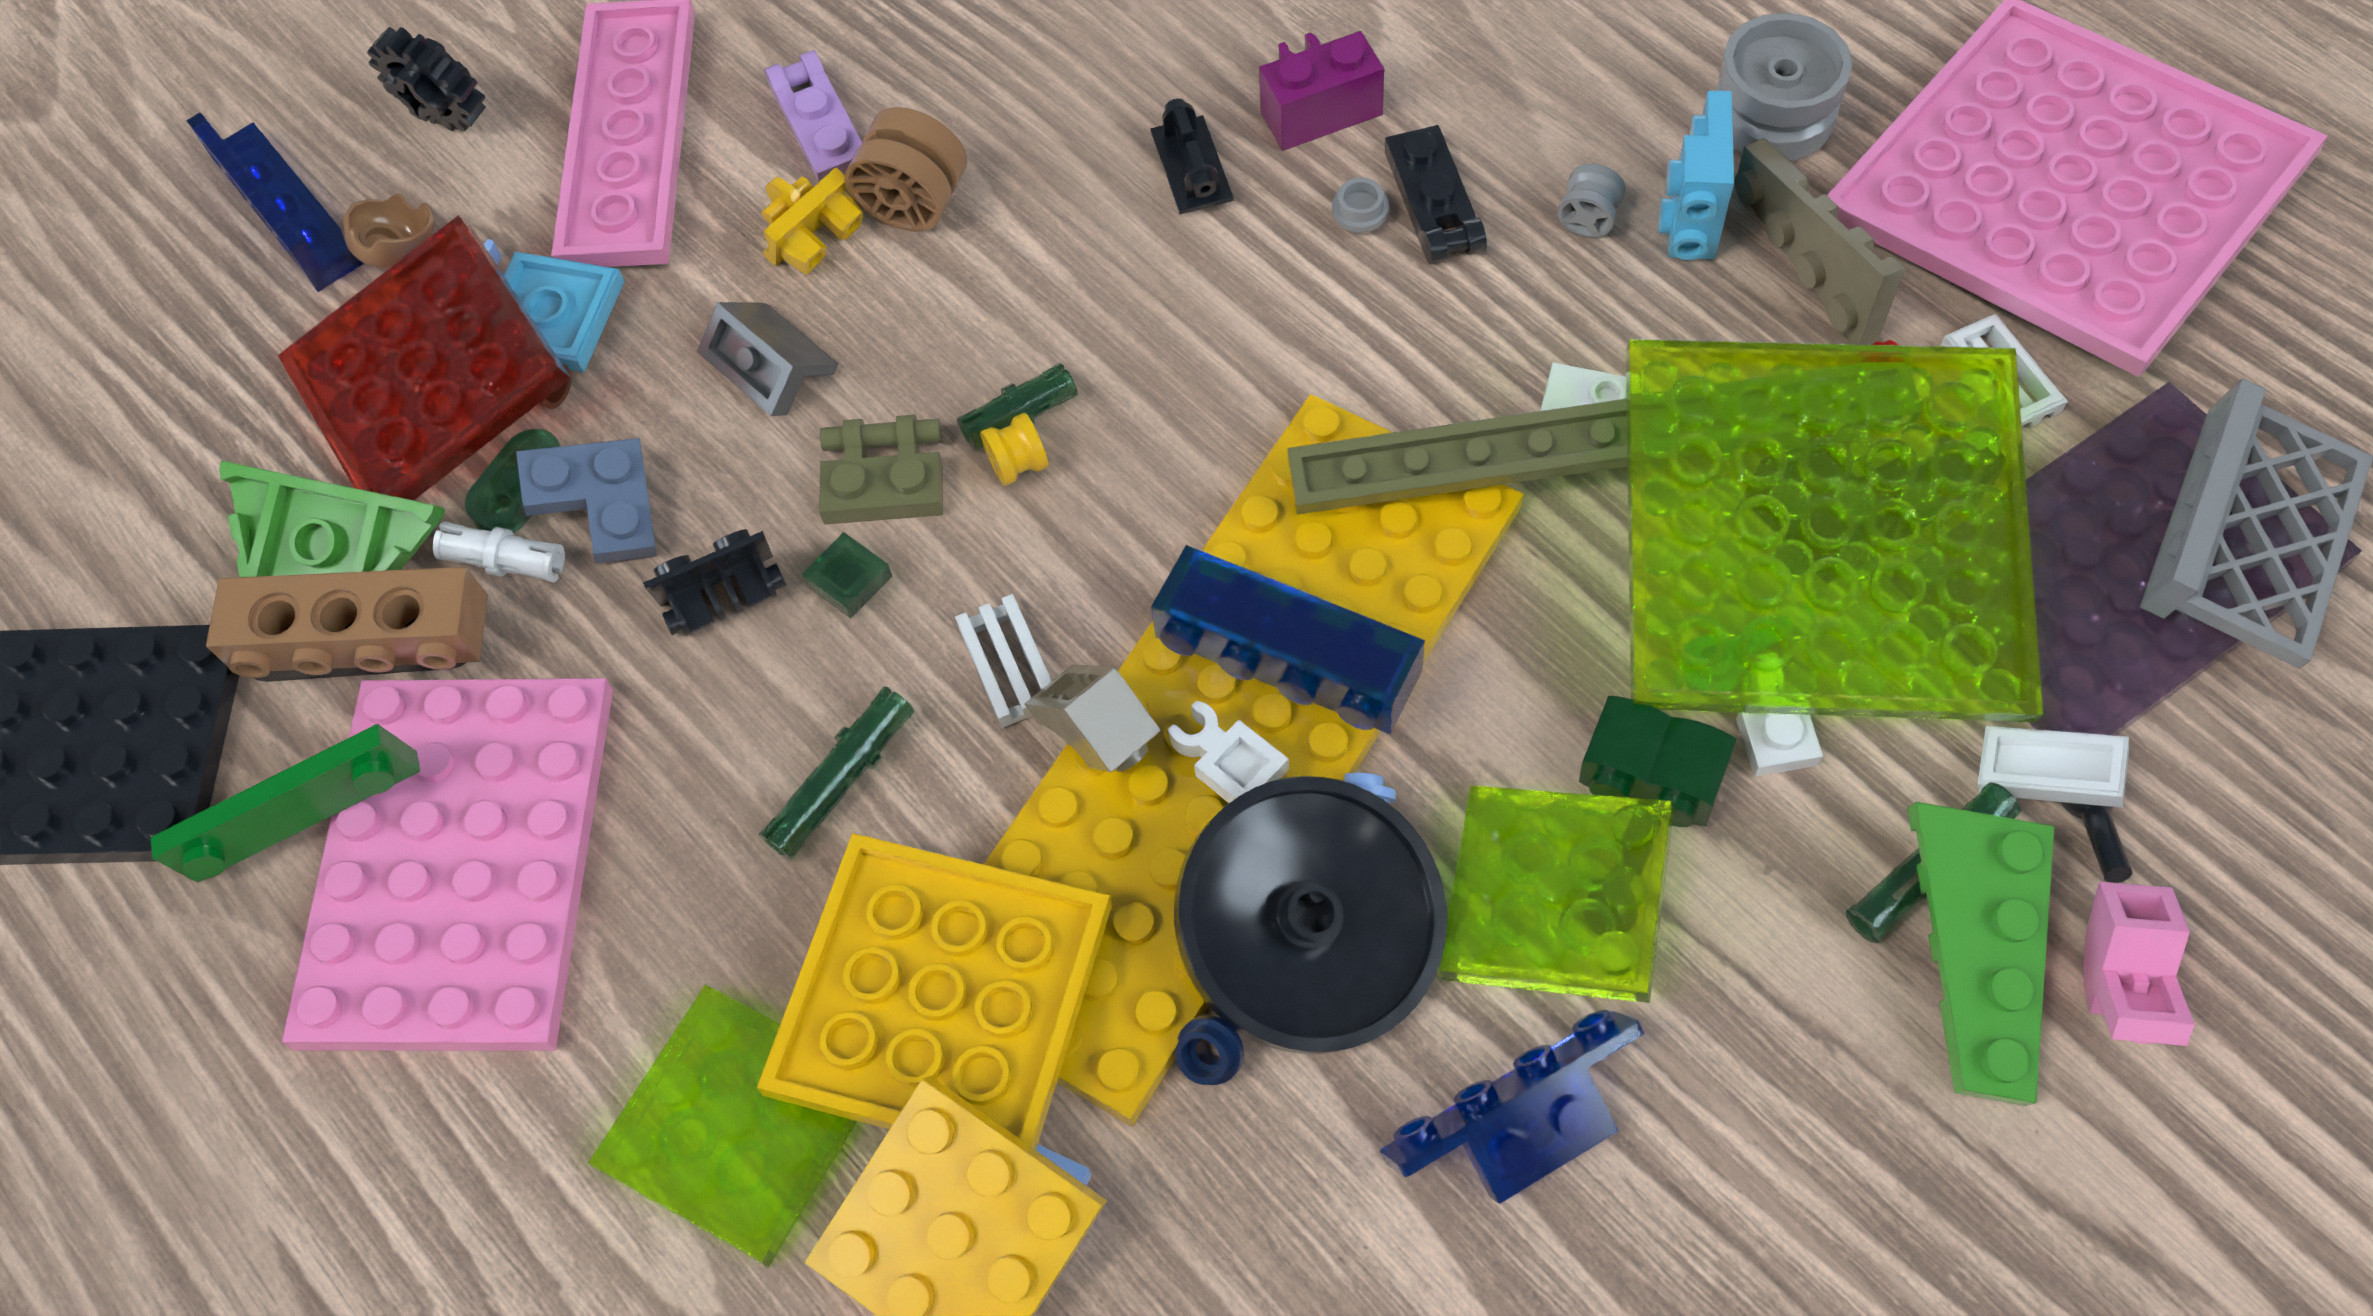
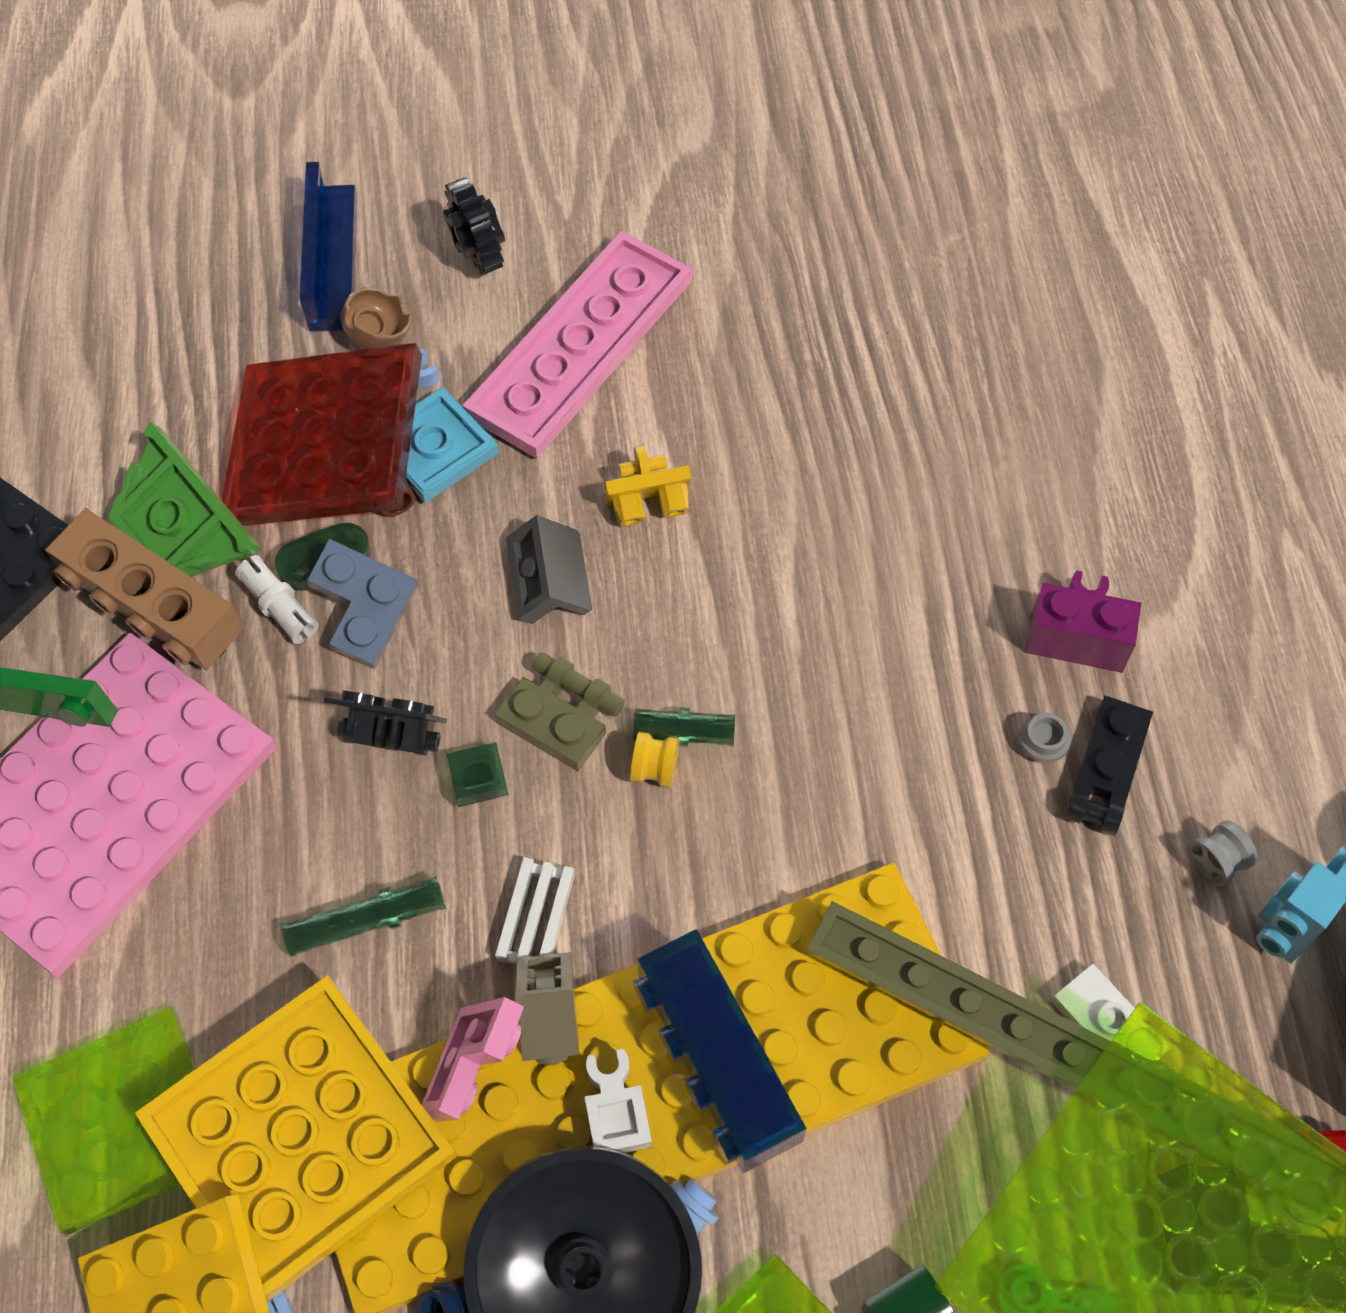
camera: 30 degrees right, 0 degrees up
(814, 114) = (713, 415): lavender plate -> none
(906, 169) = (736, 497): medium nougat wheel -> none
(1045, 792) = (479, 1037): none -> bright pink plate
(1190, 159) = (948, 618): black hinge -> none

